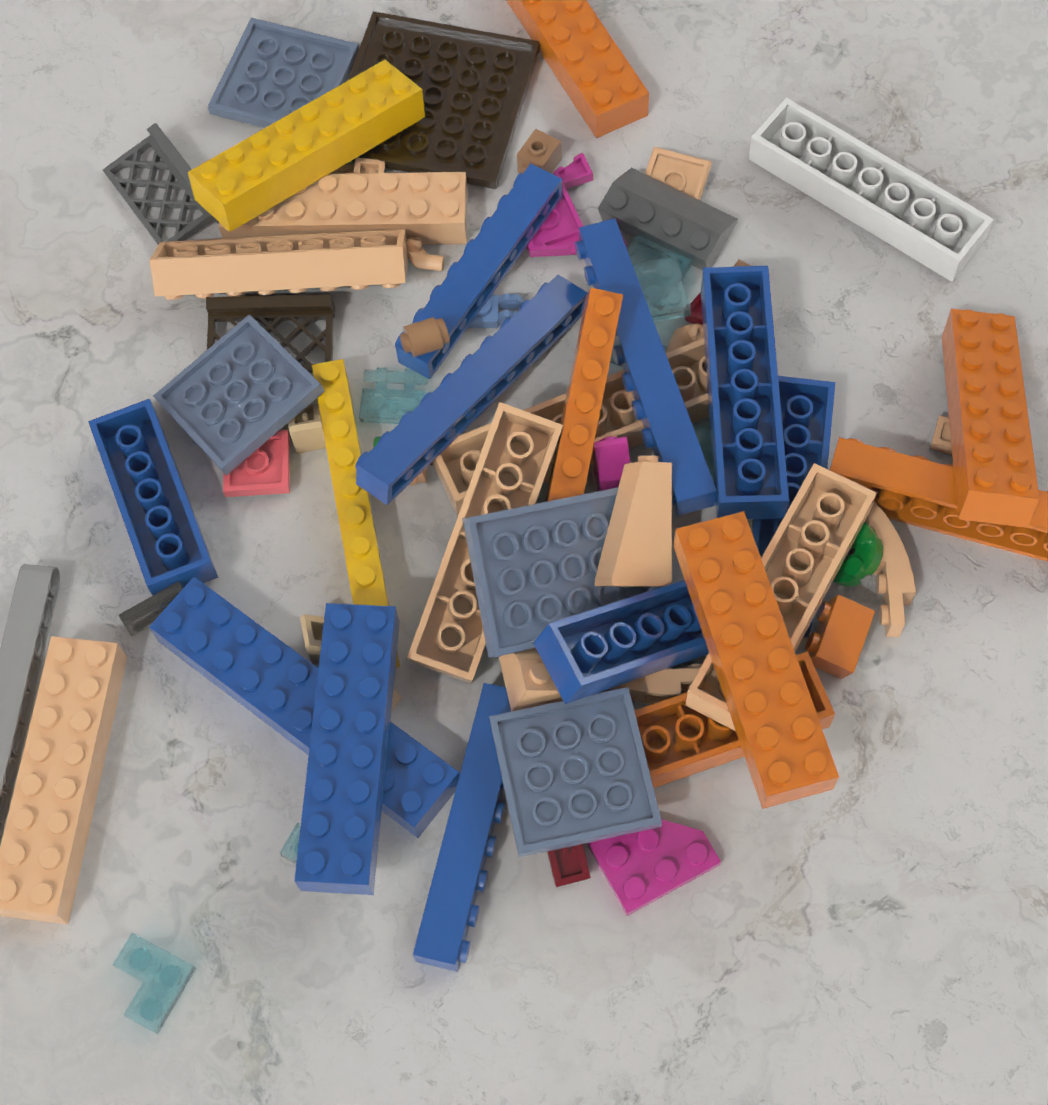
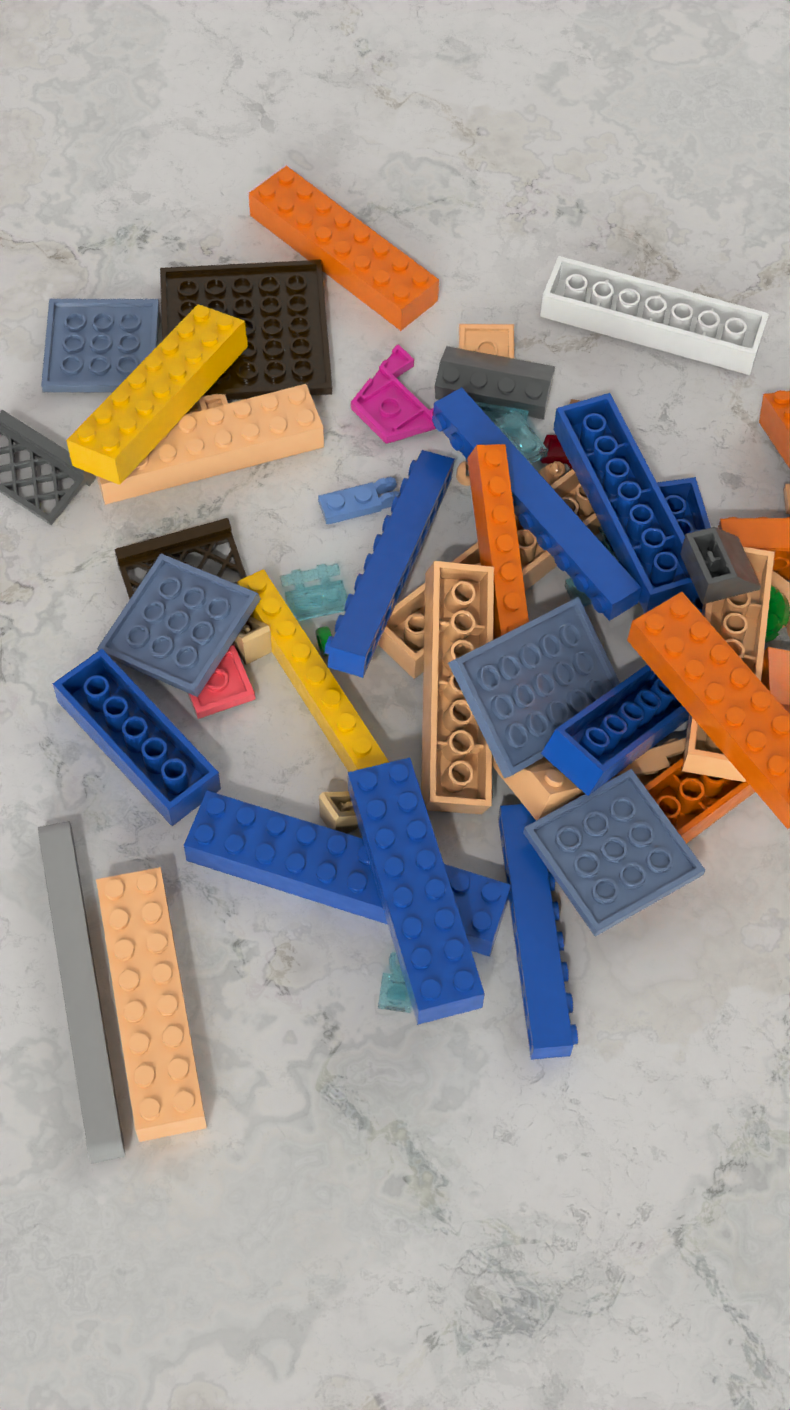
camera: 25 degrees left, 5 degrees down
(144, 613) = (174, 832): clear smoke tile -> none
(162, 977) = (315, 1142): clear light blue plate -> none
(279, 263) = (171, 502): light nougat brick -> none
(420, 258) = (290, 469): light nougat arm -> none
(424, 336) = (335, 528): medium nougat brick -> none
(486, 262) = (352, 465): blue brick -> none
(540, 151) = (360, 356): medium nougat brick -> none
(568, 865) = (630, 935): dark red bracket -> none
(609, 460) = (539, 592): dark pink slope -> none
(640, 528) = (588, 636): light nougat slope -> none
(653, 862) = (697, 913): dark pink plate -> none
(803, 491) = (717, 565): none -> dark grey slope

